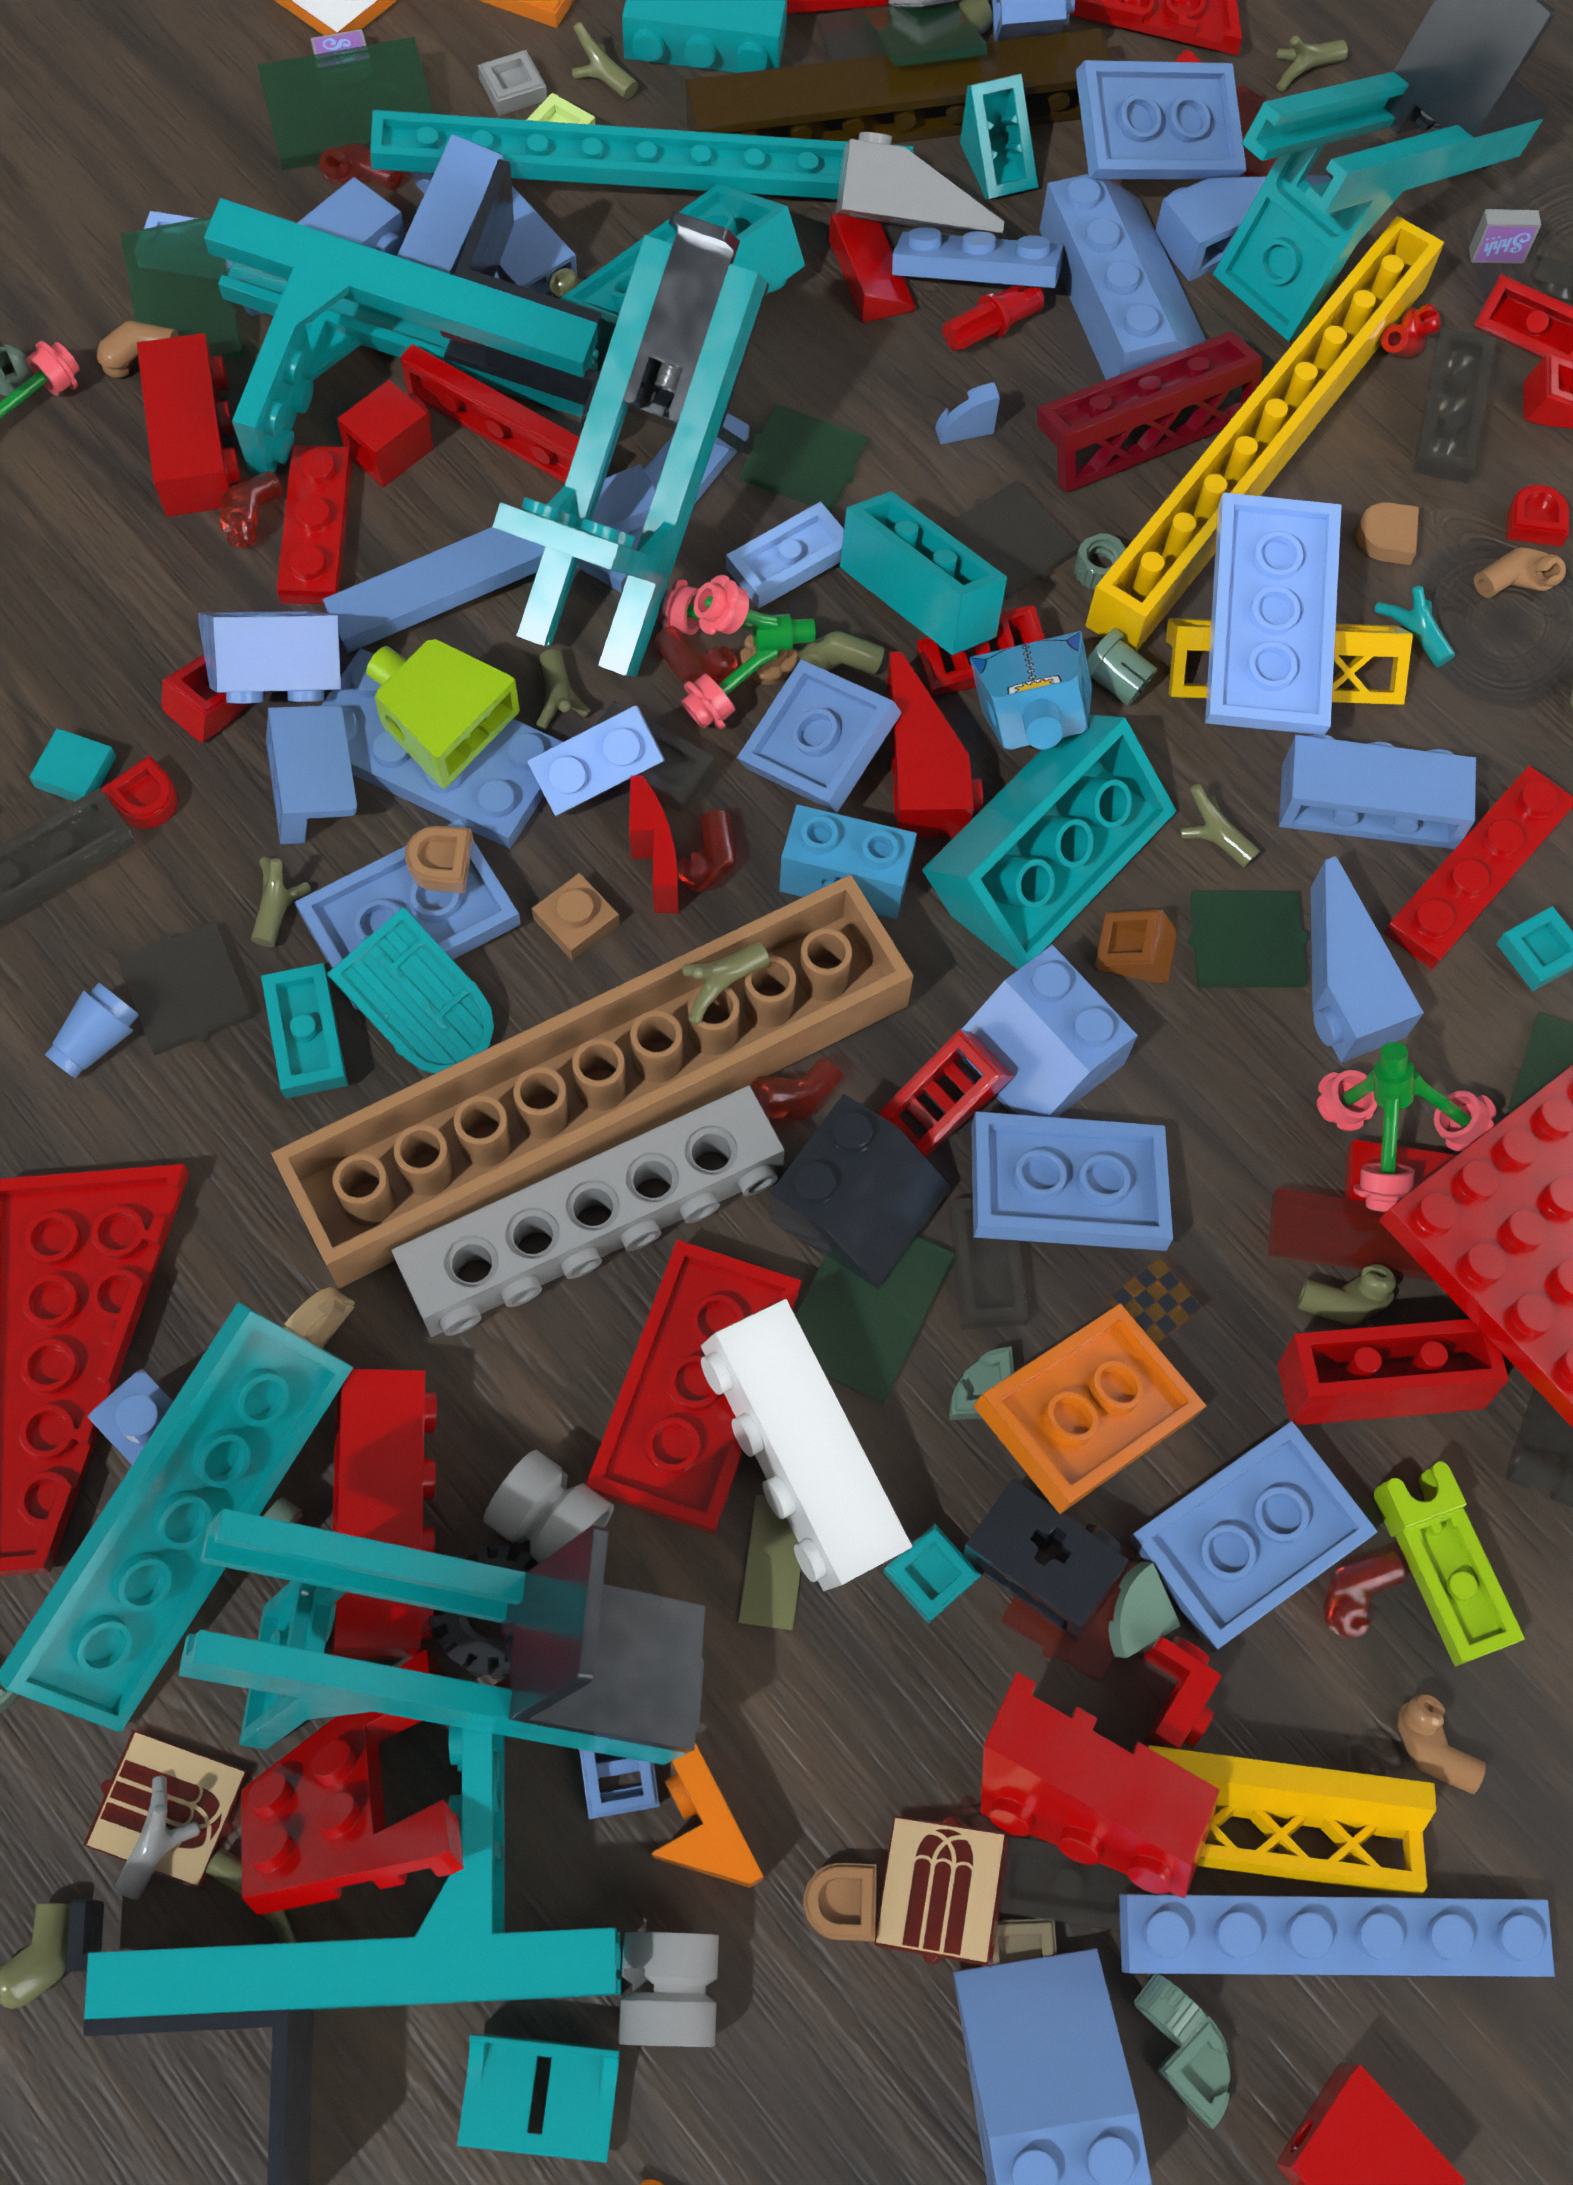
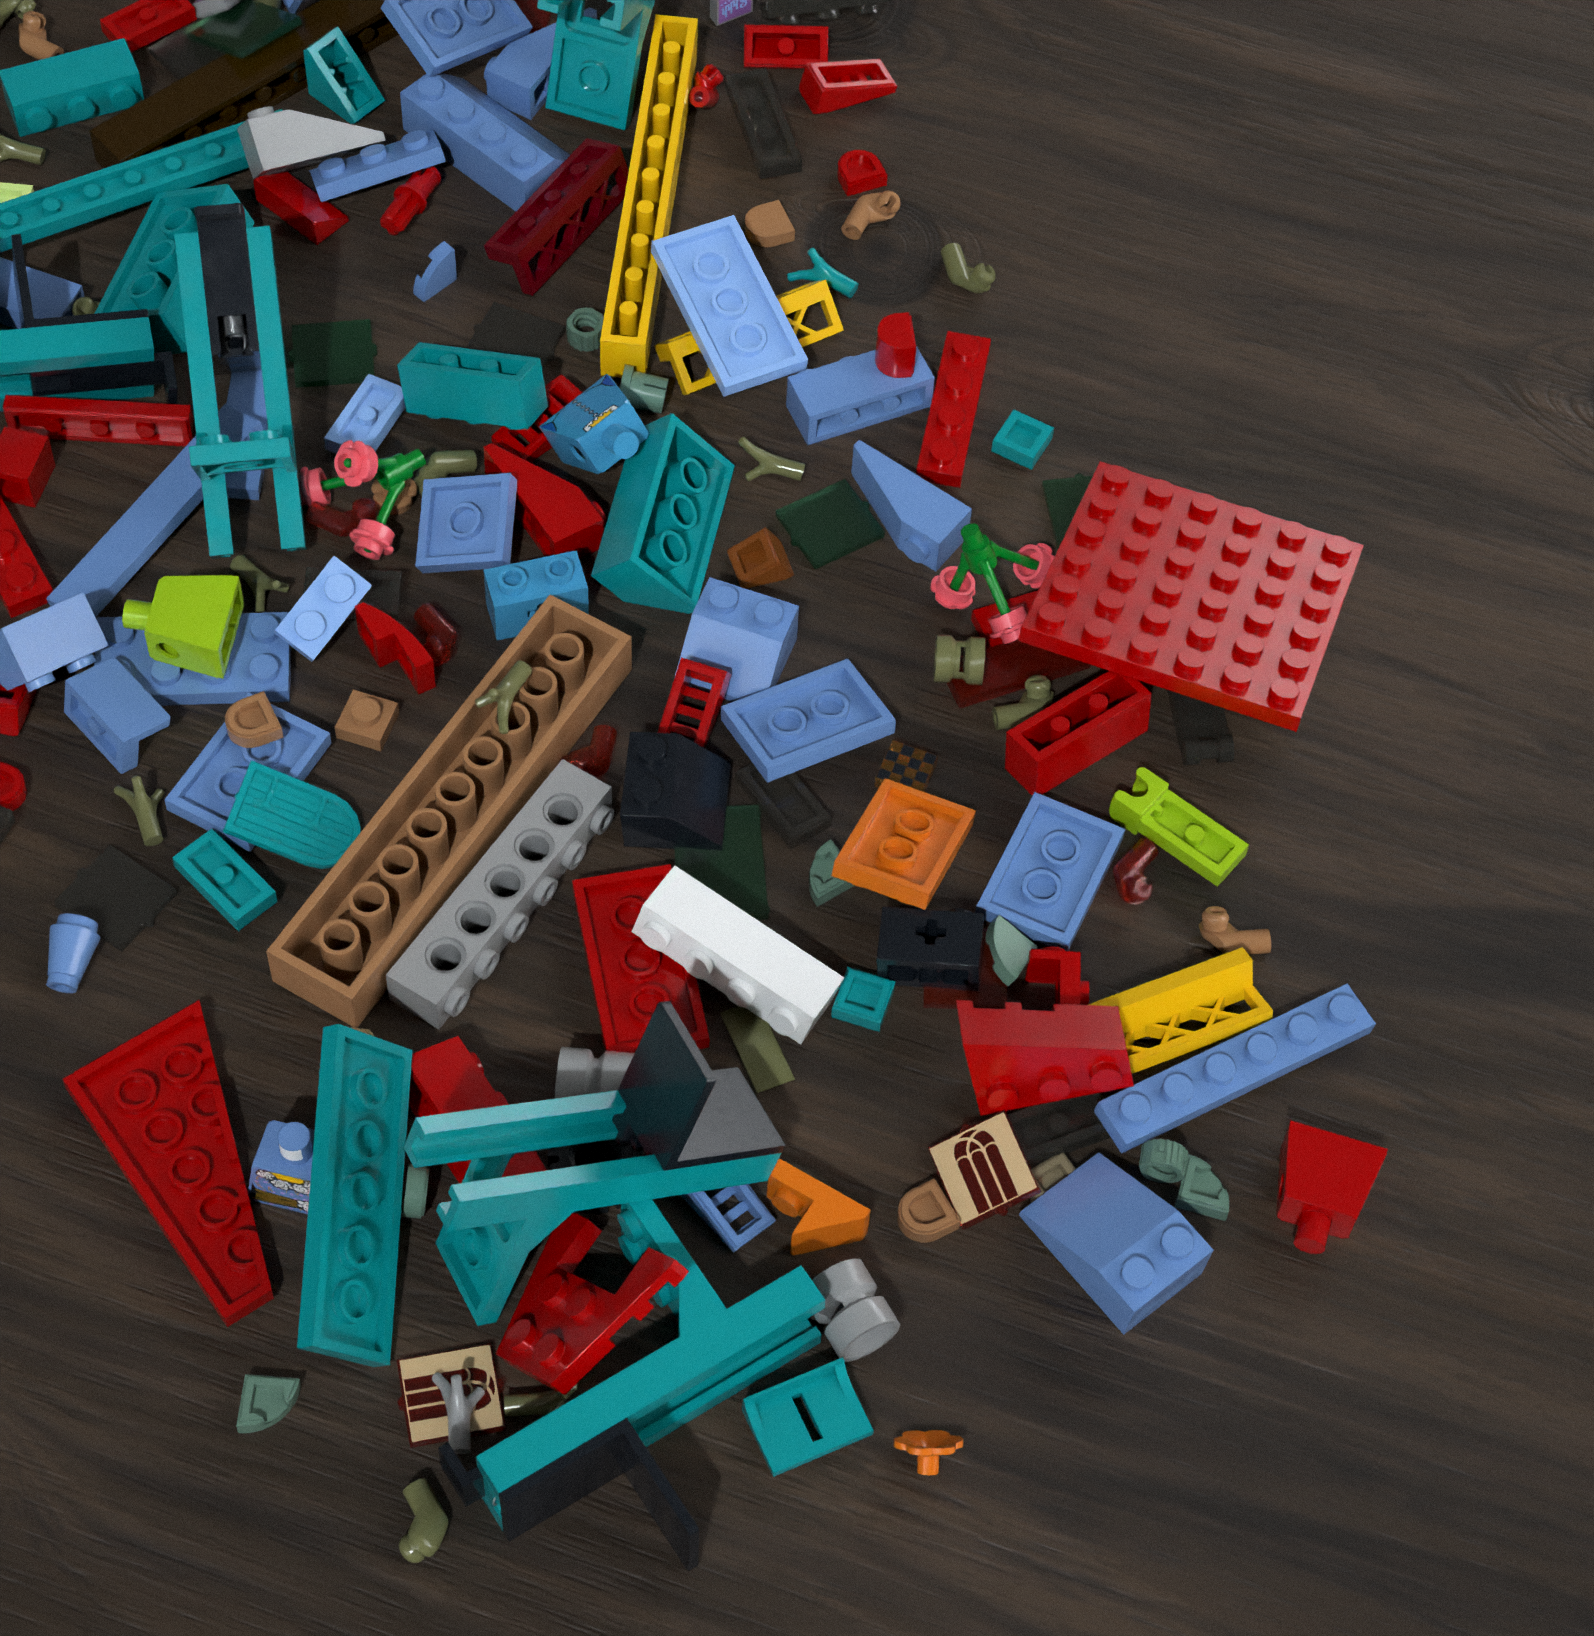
camera: 30 degrees left, 10 degrees down
(1281, 1195) = (948, 659): none -> olive wheel
(1446, 760) = (896, 346): none -> red brick

